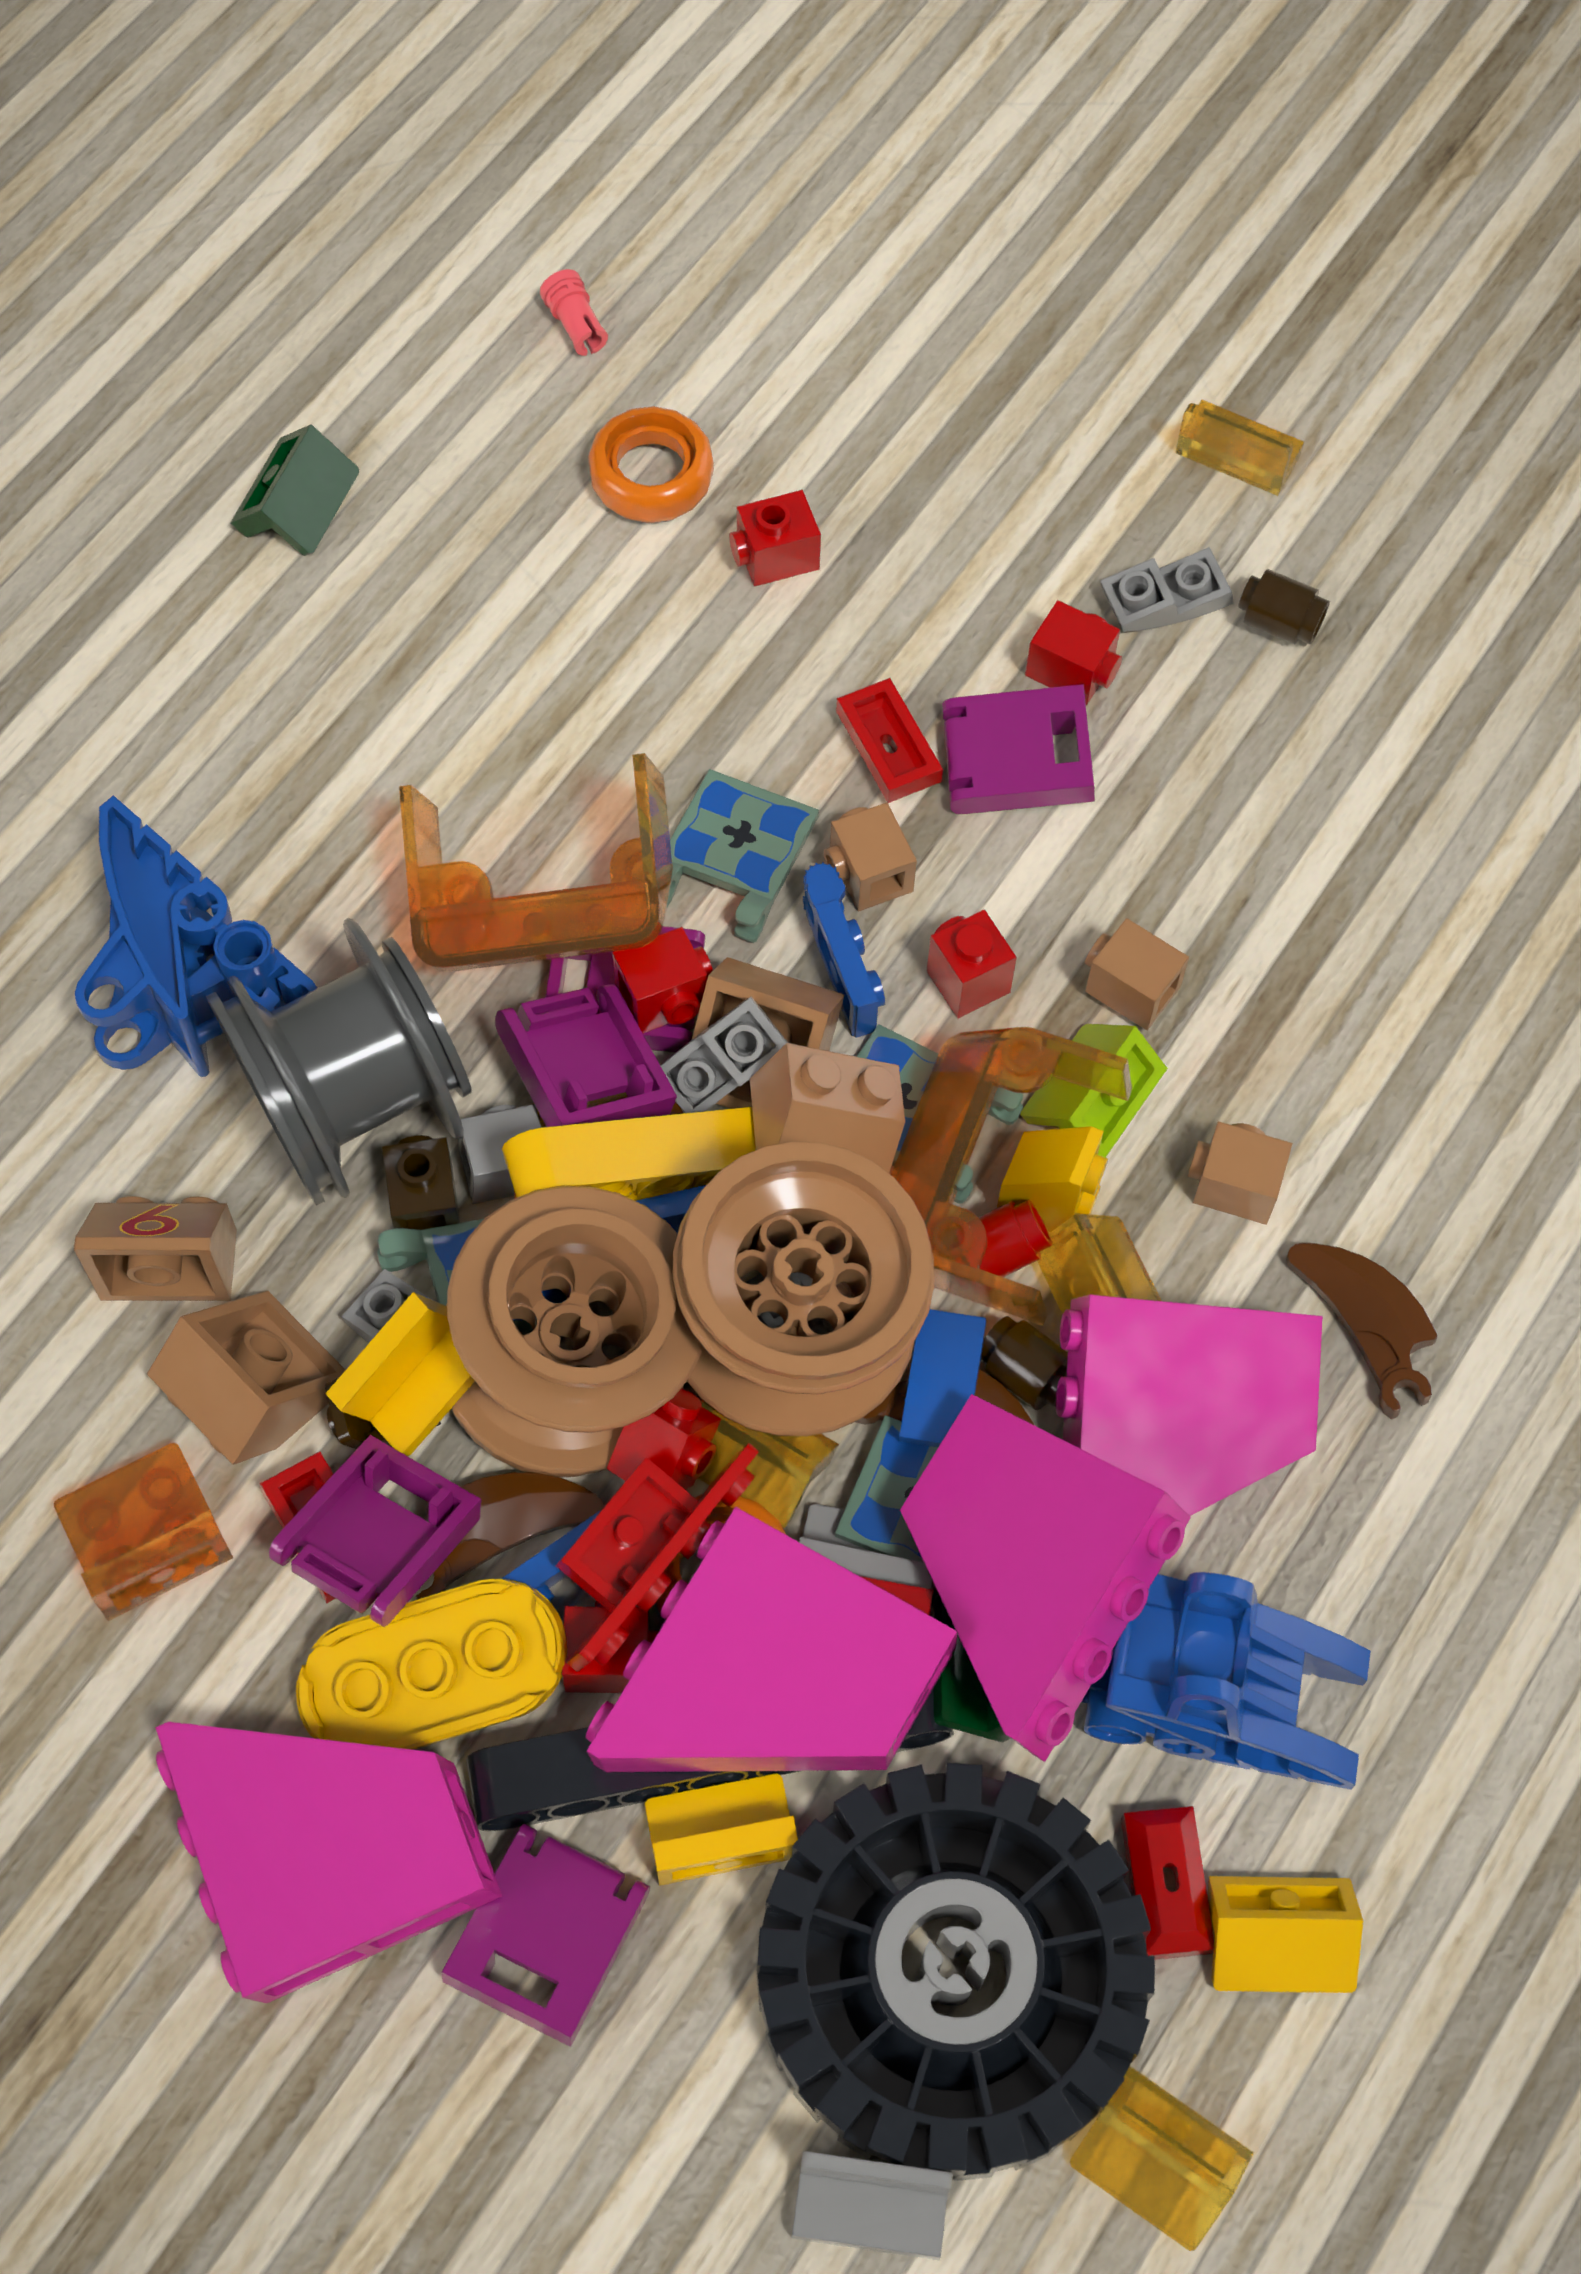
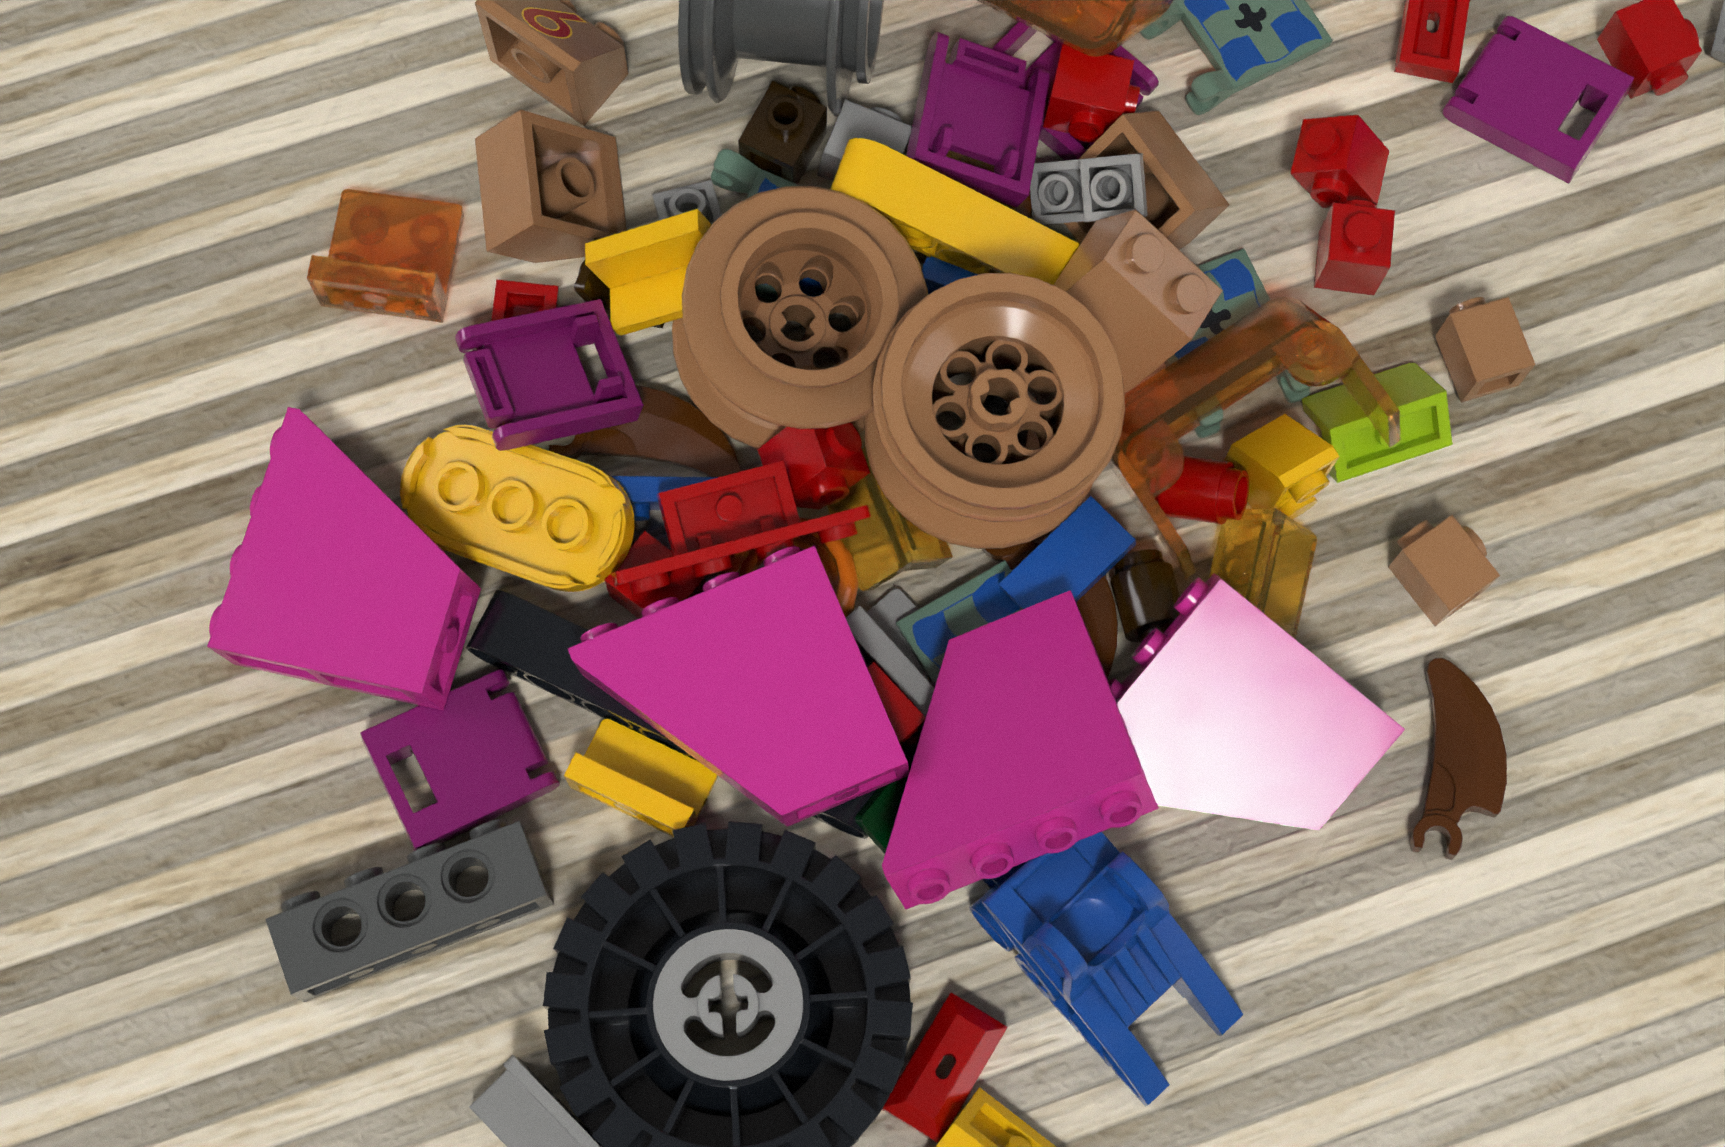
camera: 35 degrees right, 10 degrees up
(561, 2211) = (306, 922): none -> dark grey brick
(840, 948) = (1261, 163): blue hinge -> none
(871, 856) = (1343, 88): medium nougat brick -> none
(905, 900) = (1339, 160): none -> red brick

